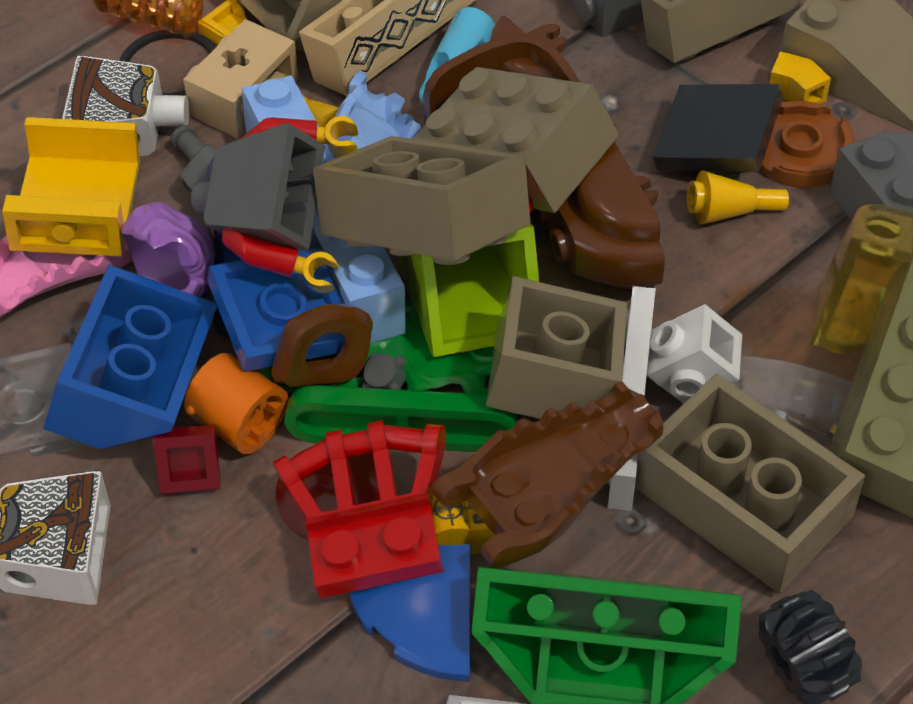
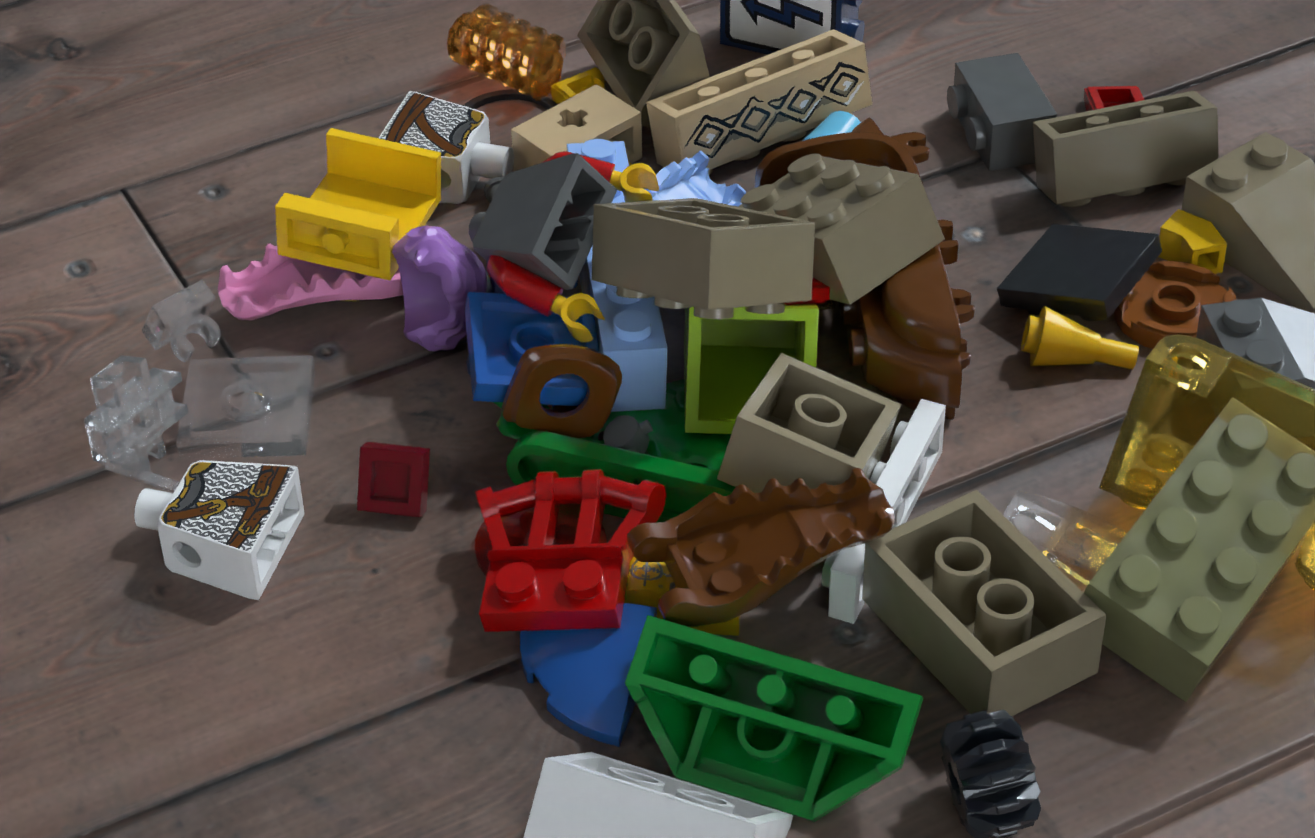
camera: 15 degrees right, 10 degrees down
(129, 362) = (358, 371): blue slope -> none
(239, 403) = (463, 435): orange piece -> none
(692, 351) = (968, 463): white brick -> none

